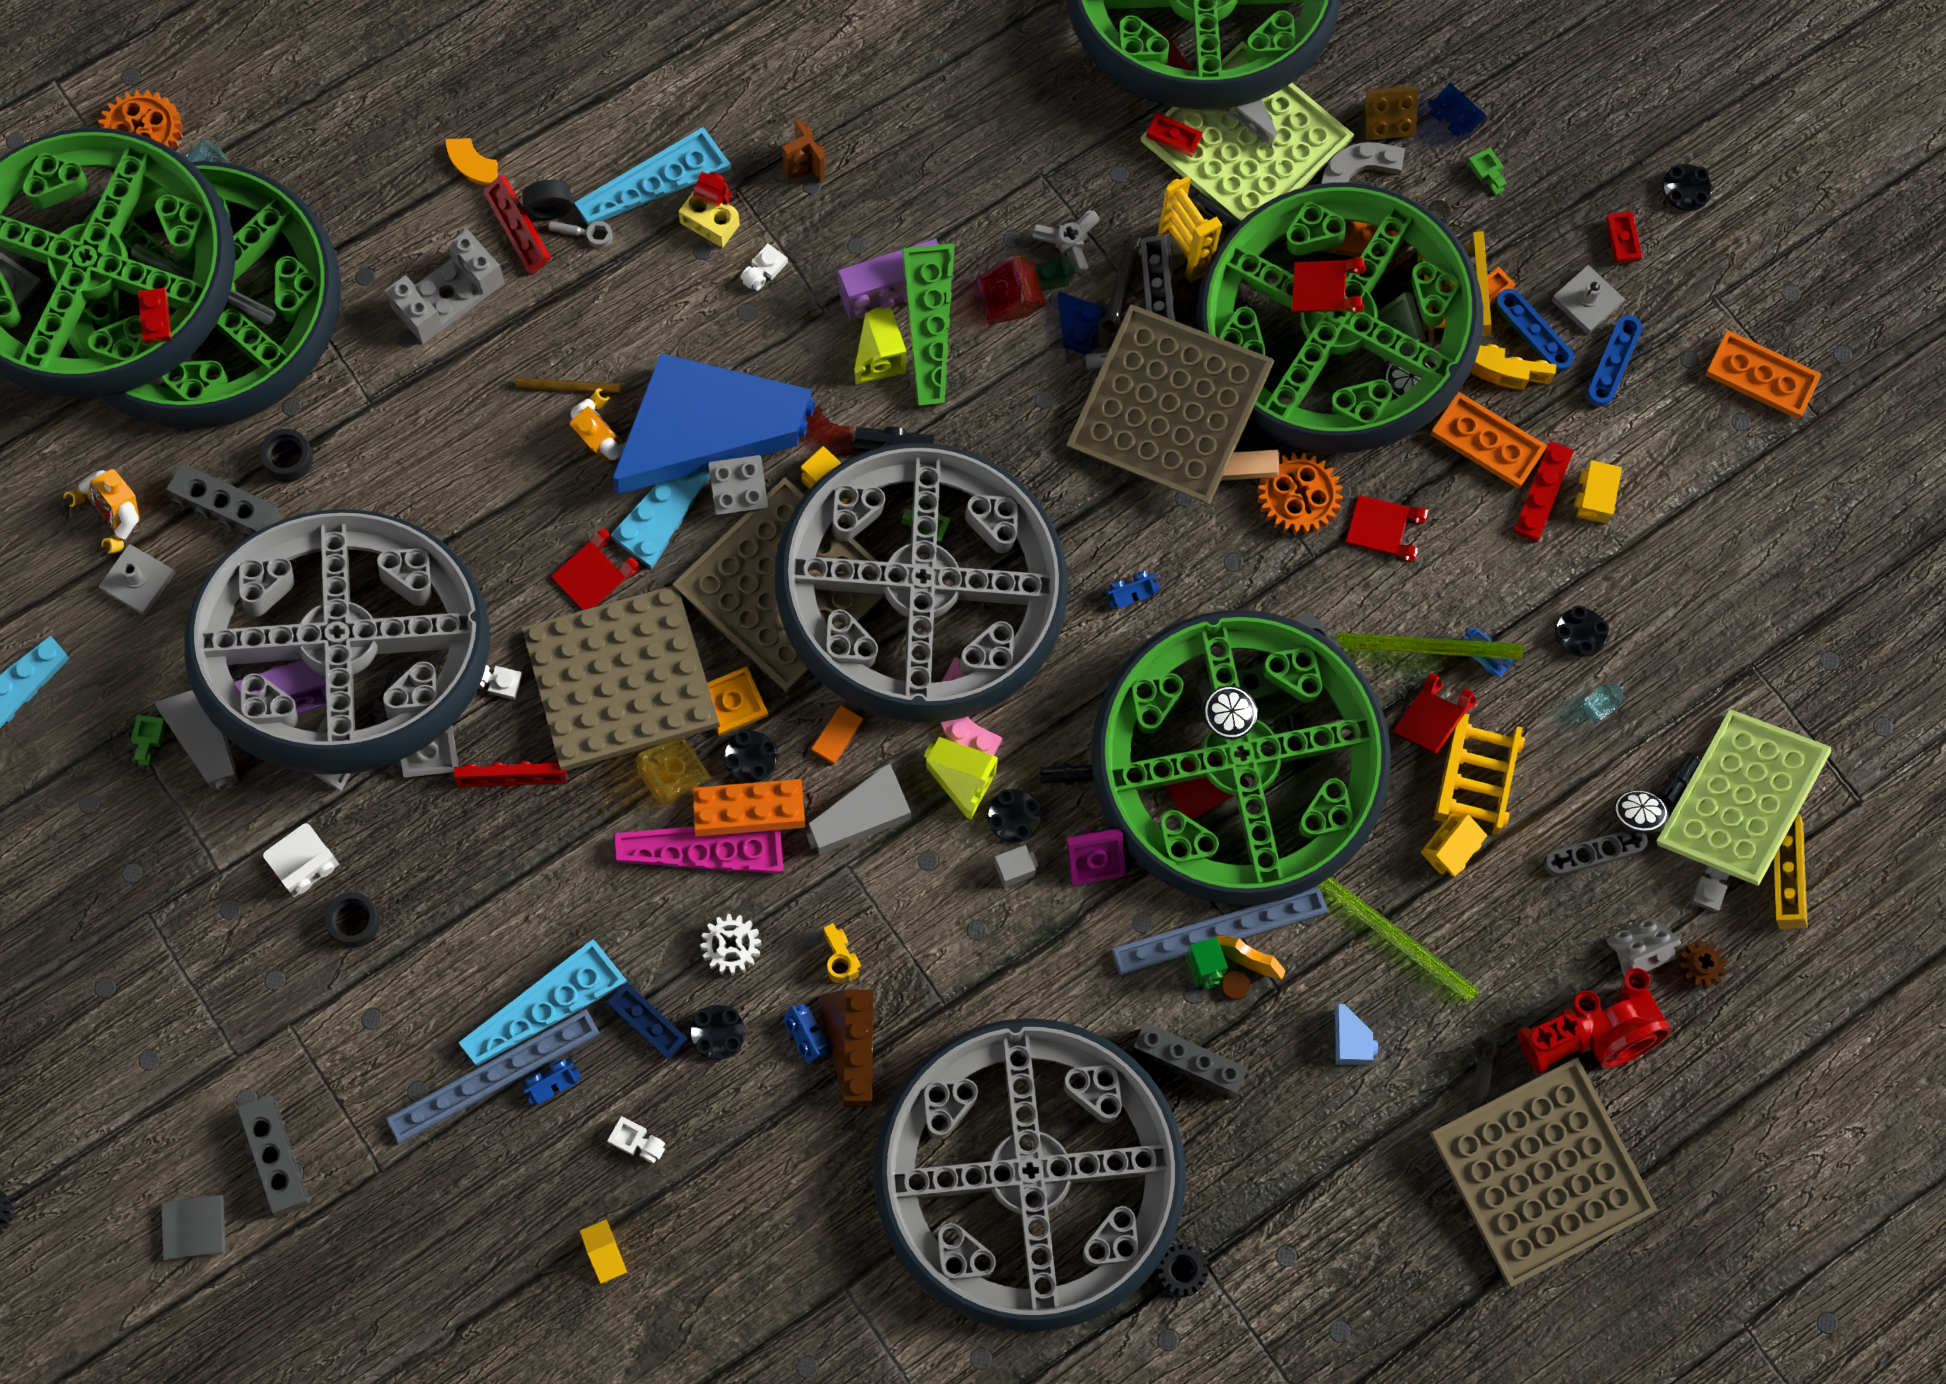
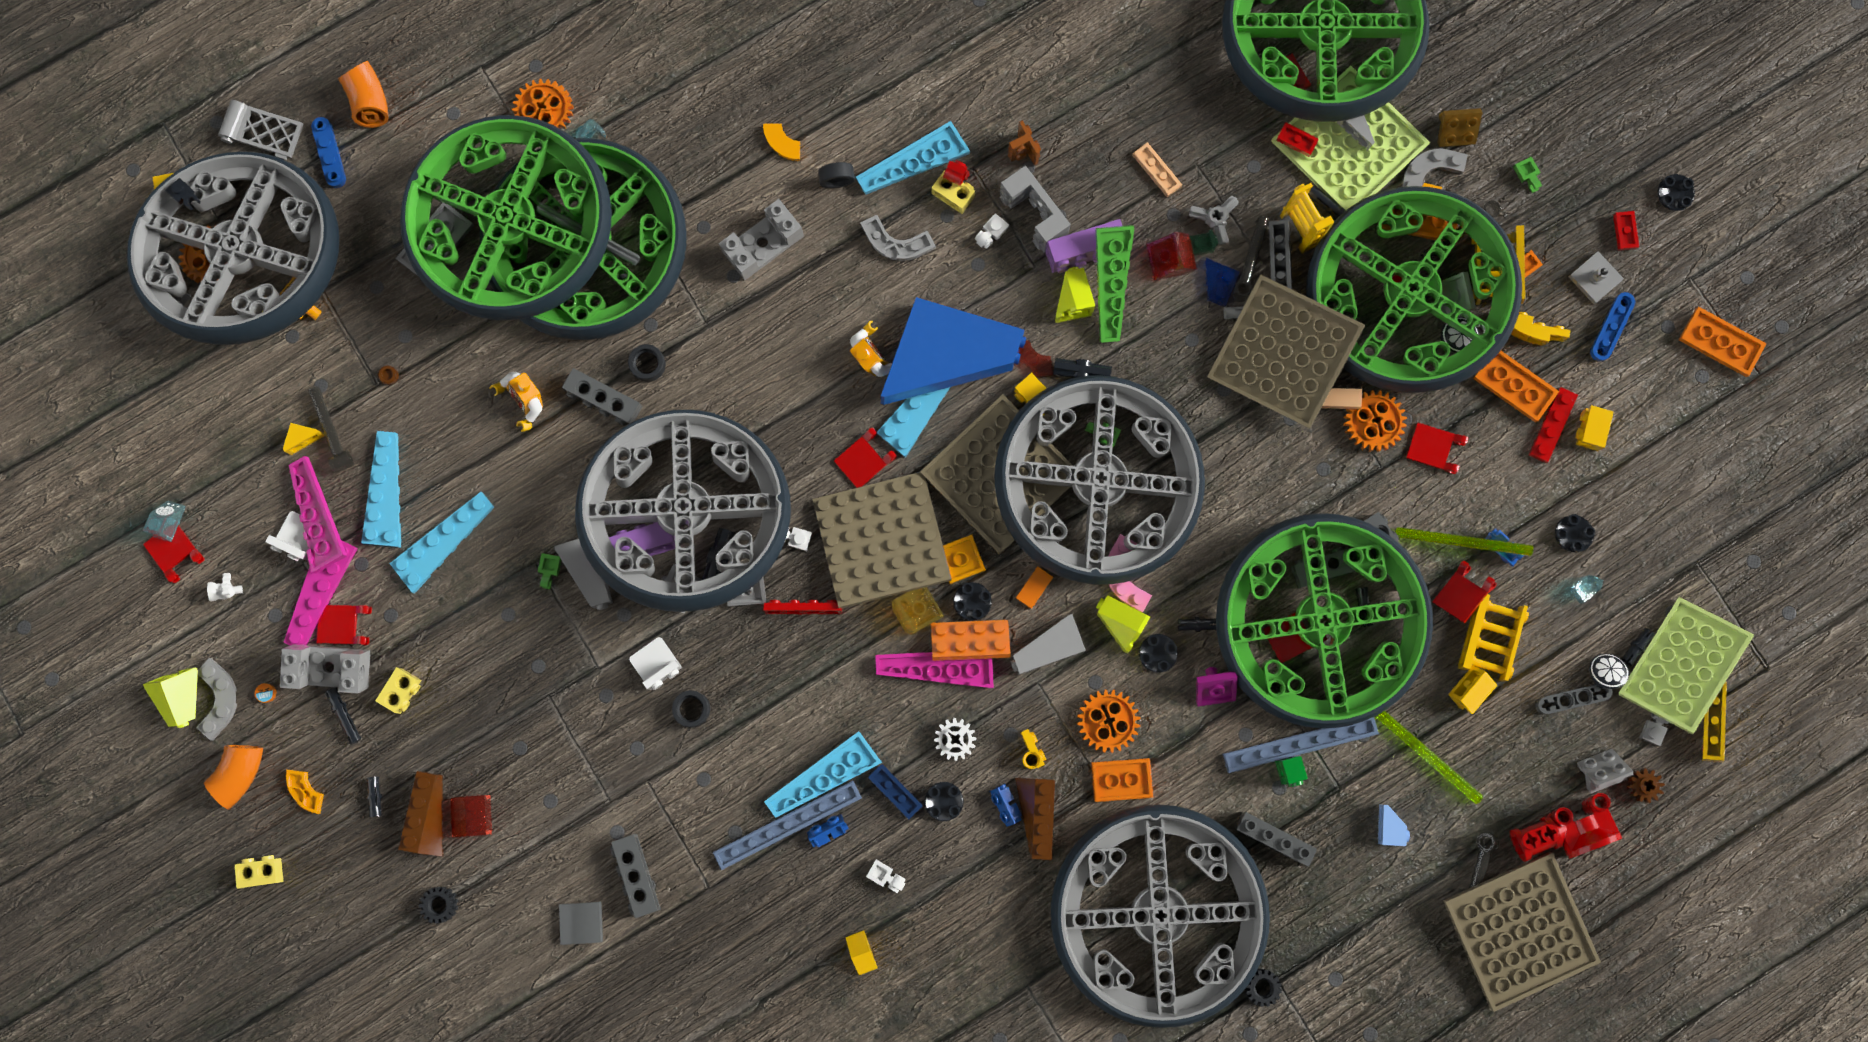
camera: 10 degrees right, 10 degrees up
(33, 1083) = (471, 816): none -> clear red slope
(137, 579) = (541, 451): light grey tile -> none
(154, 316) = (554, 264): red plate -> none
(517, 224) = (813, 192): red plate -> none
(564, 385) = (848, 316): pearl gold bar -> none
(577, 230) = (856, 197): light grey piece -> none
(630, 293) = (896, 249): none -> light grey plate
(738, 484) = (969, 400): light grey bracket -> none
(805, 205) = (1024, 185): none -> light grey plate
(924, 918) = (1125, 714): none -> orange gear
(970, 991) = (1122, 780): none -> orange tile
(987, 181) = (1157, 169): none -> light nougat tile
(1015, 866) = (1158, 691): light grey brick -> none
(1121, 592) = (1256, 485): blue hinge -> none
(1229, 712) = (1319, 592): dish -> none
(1235, 985) = (1310, 785): reddish brown tile -> none
(1249, 958) = (1320, 765): light orange tile -> none
(1322, 286) = (1403, 268): red flag -> none
(1457, 111) = (1508, 127): clear blue bracket -> none
(1534, 329) = (1554, 300): blue plate -> none

